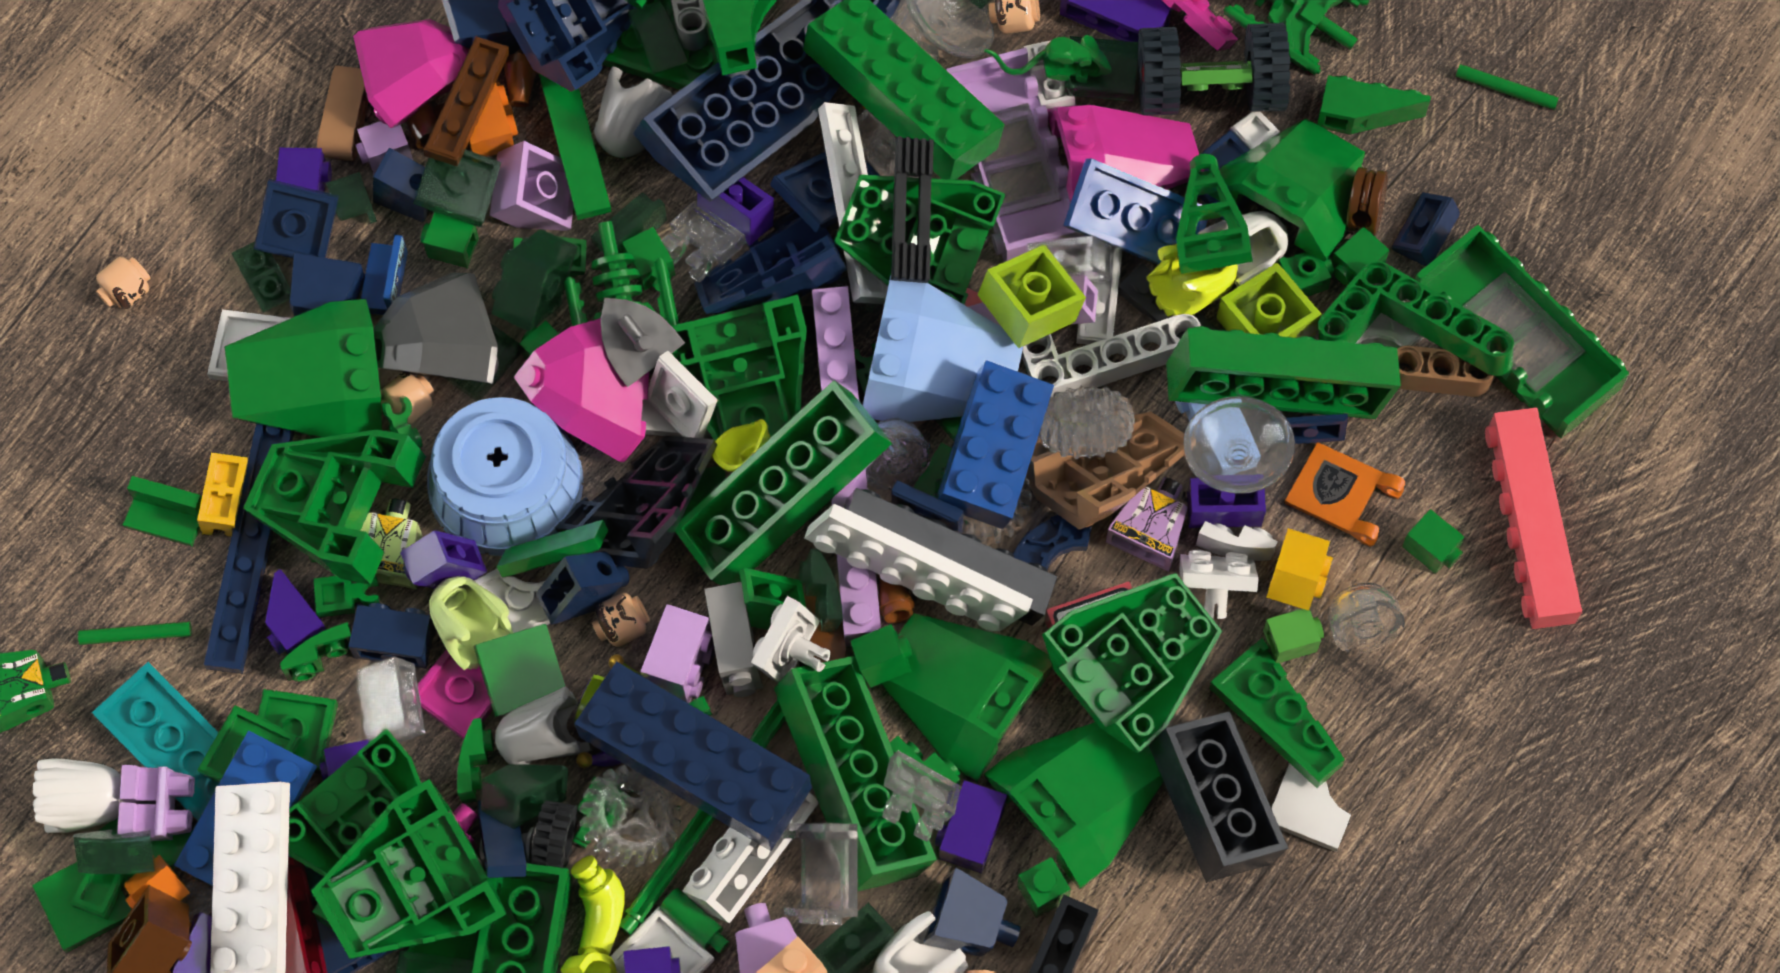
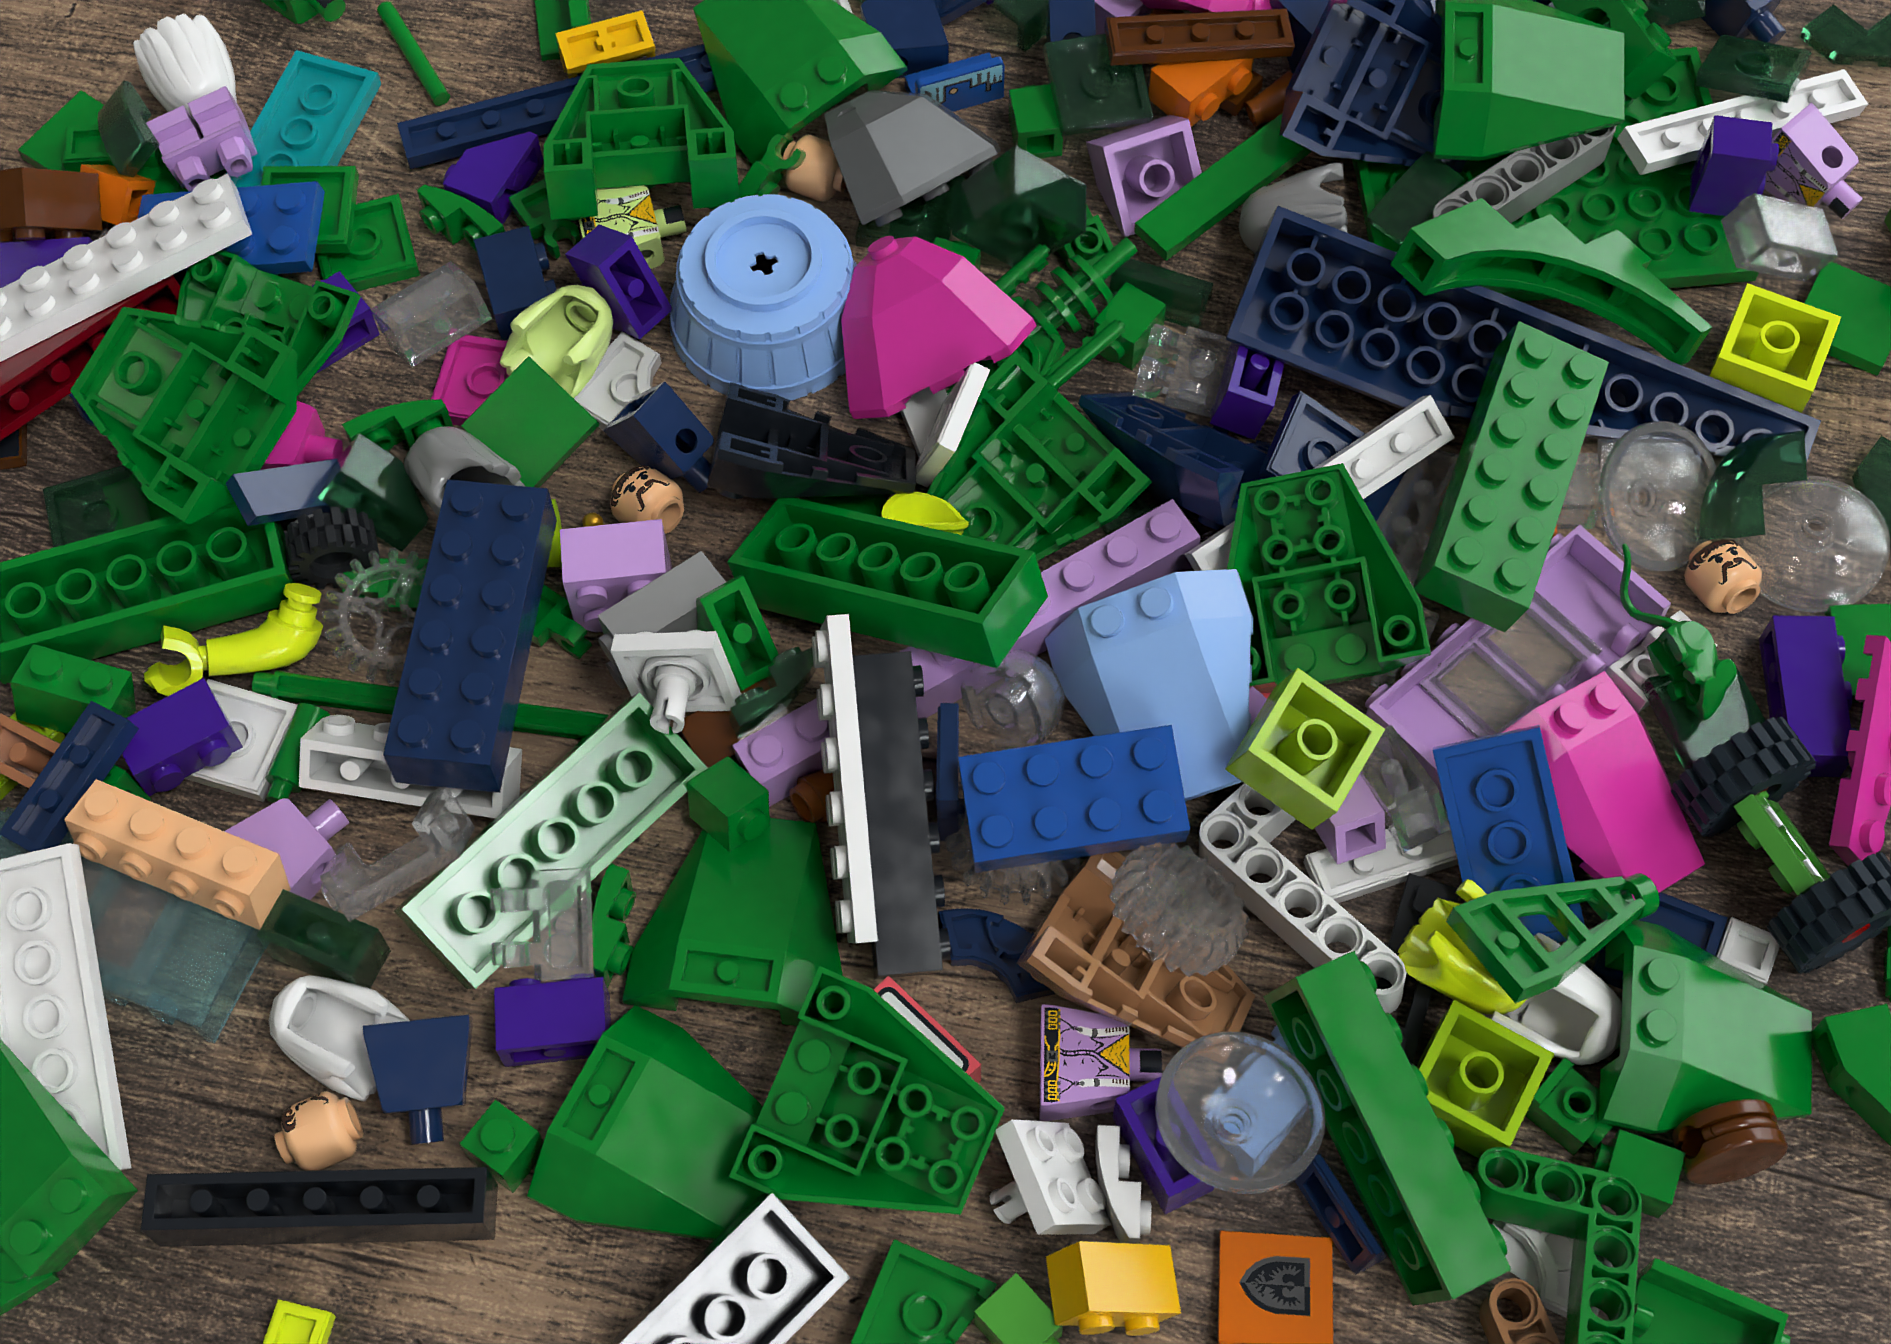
camera: 65 degrees right, 5 degrees down
(552, 548) = (691, 383): green tile -> none
(635, 338) = (990, 328): flat silver shield -> none
(912, 159) = (1399, 511): black container -> none
(1426, 228) = (1749, 1253): dark blue slope -> none

